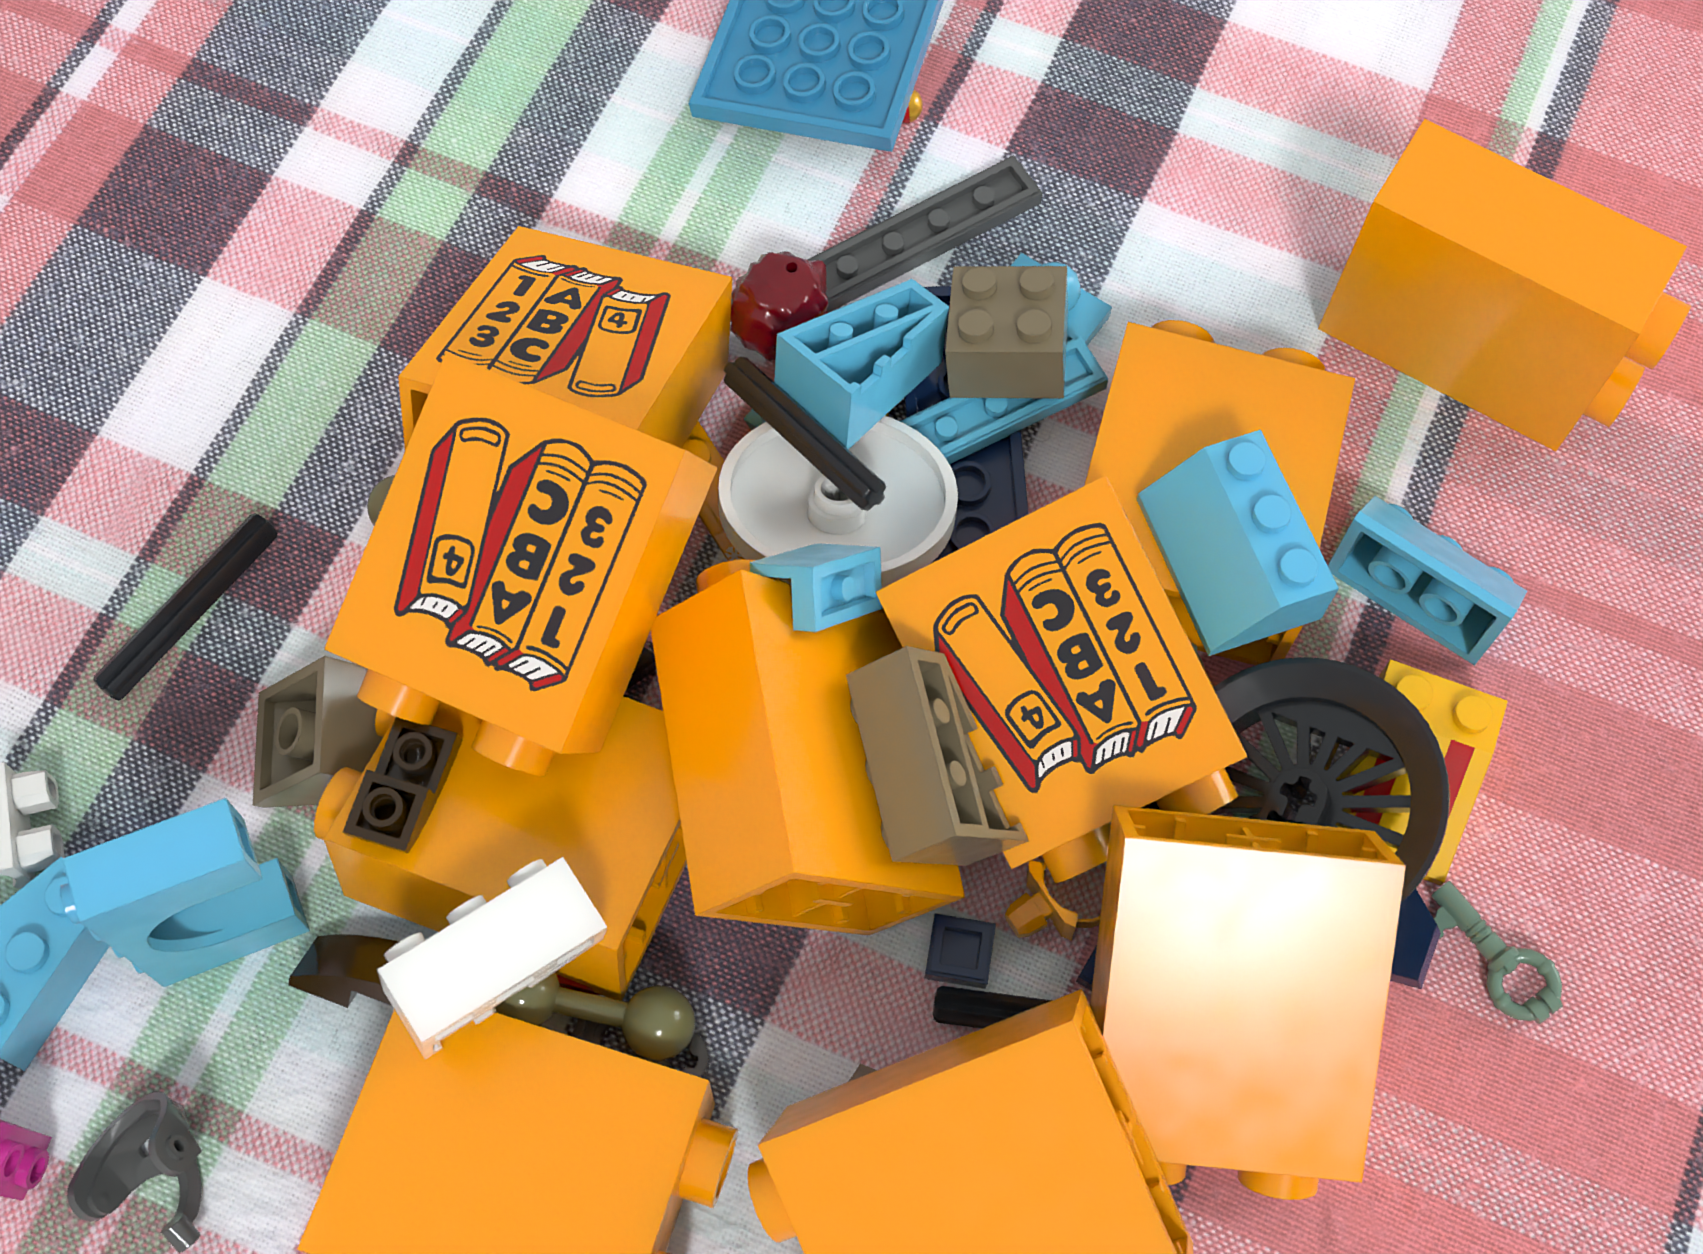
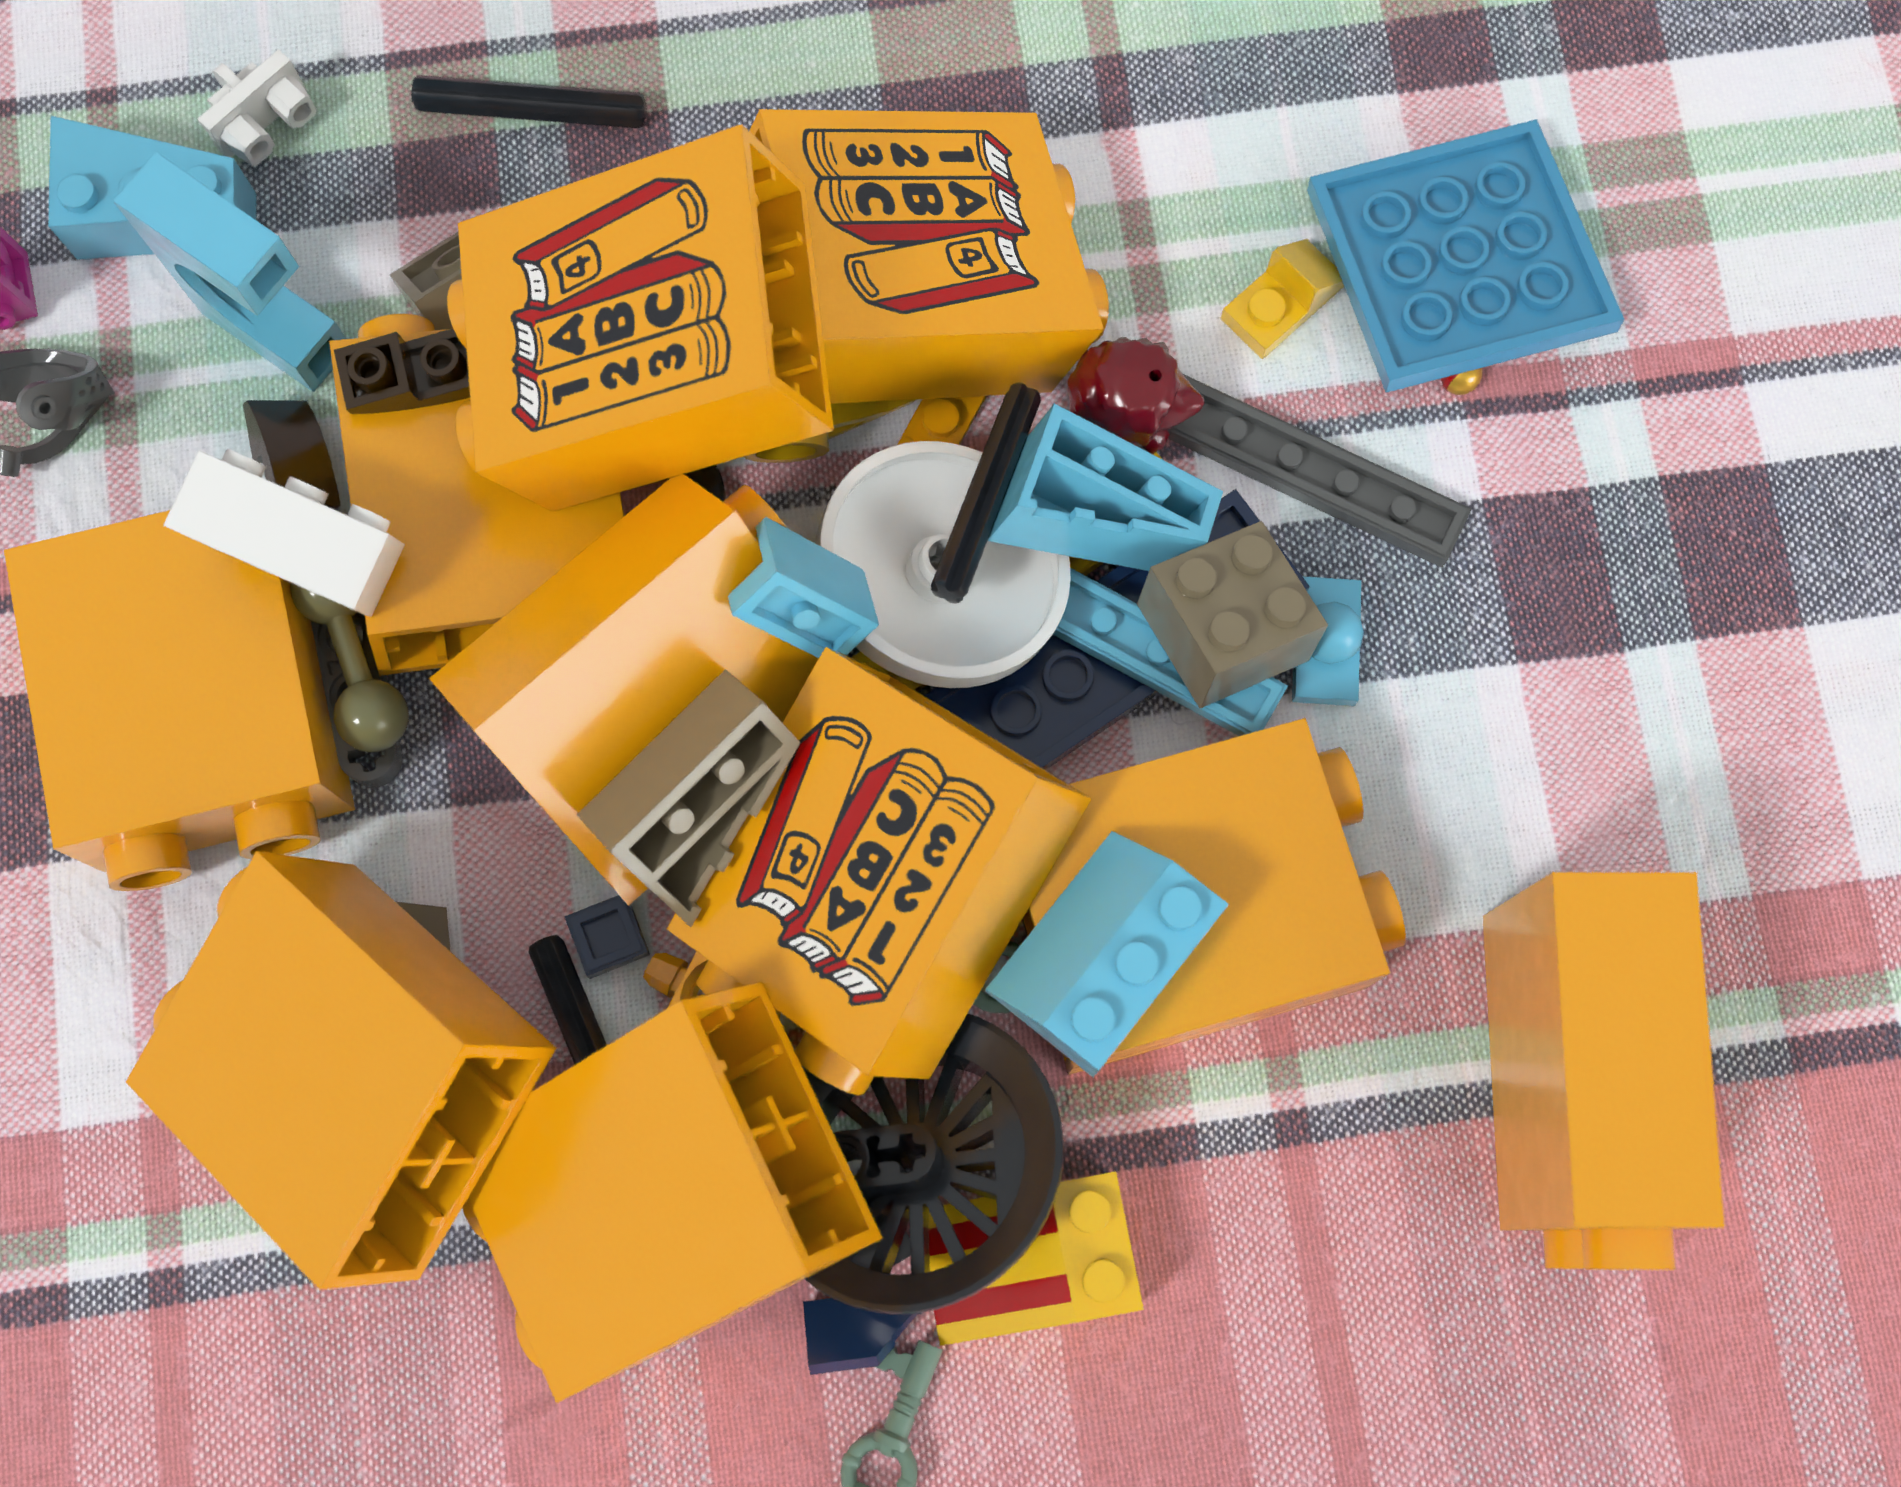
camera: 60 degrees right, 10 degrees up
(766, 179) = (1283, 297): none -> yellow slope
(1426, 579) = (1250, 1164): medium azure slope -> none

